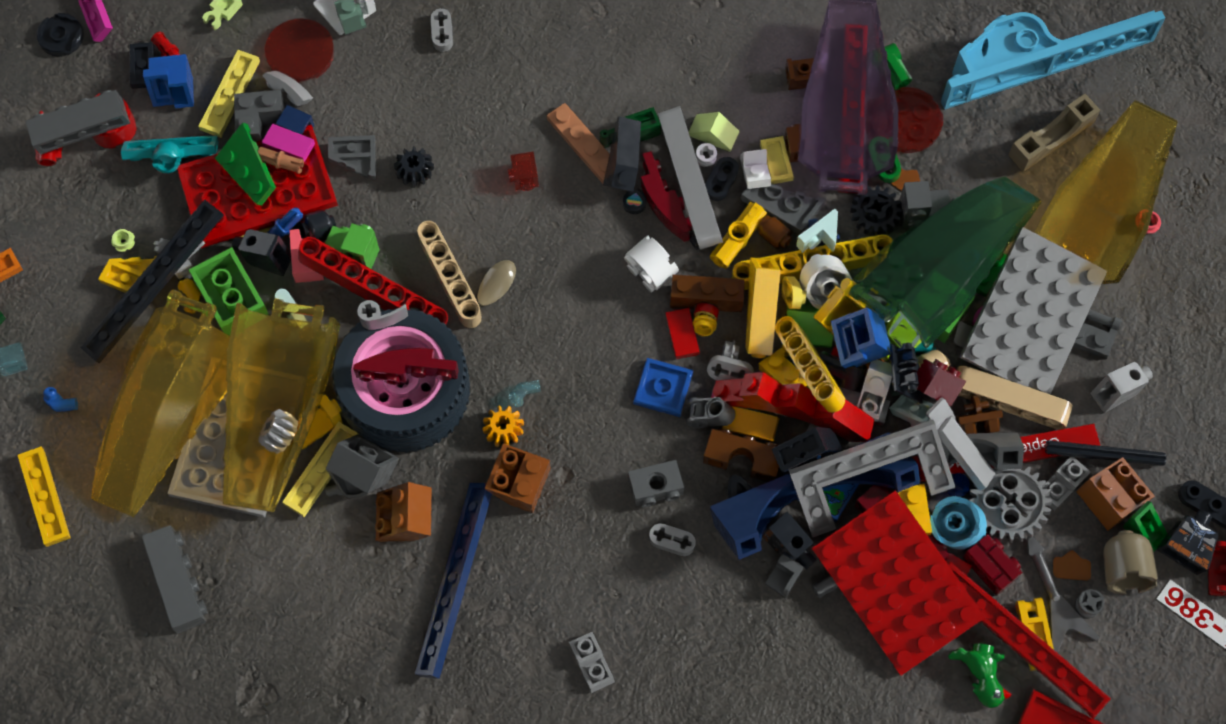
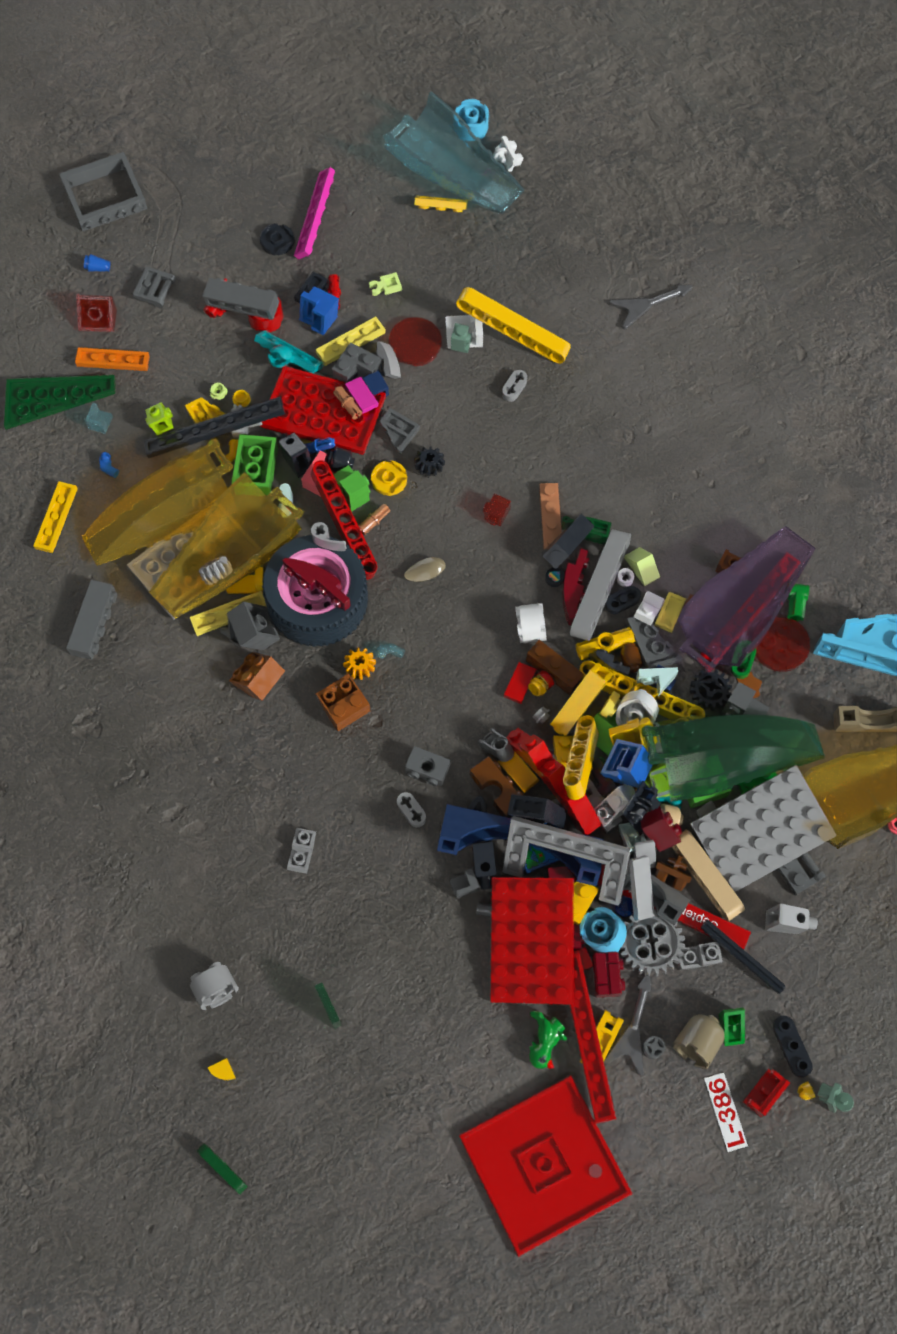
camera: 35 degrees right, 0 degrees up
(76, 309) = (159, 418): none -> lime brick
(154, 231) = (241, 397): none -> yellow plate
(245, 166) = (322, 392): green wing -> none
(383, 212) = (389, 478): none -> yellow tile
(401, 263) = (373, 519): none -> nougat axle
(450, 284) = (399, 552): tan beam -> none
(454, 582) = (255, 739): dark blue plate -> none
(663, 387) = (481, 709): blue tile -> none
(730, 368) = (533, 725): light grey beam -> none
(756, 250) = (606, 660): none -> black slope
(1072, 567) = (662, 1015): dark orange sticker -> none
(1115, 493) = (728, 987): dark orange slope -> none
(1191, 542) = (755, 1057): torso -> none

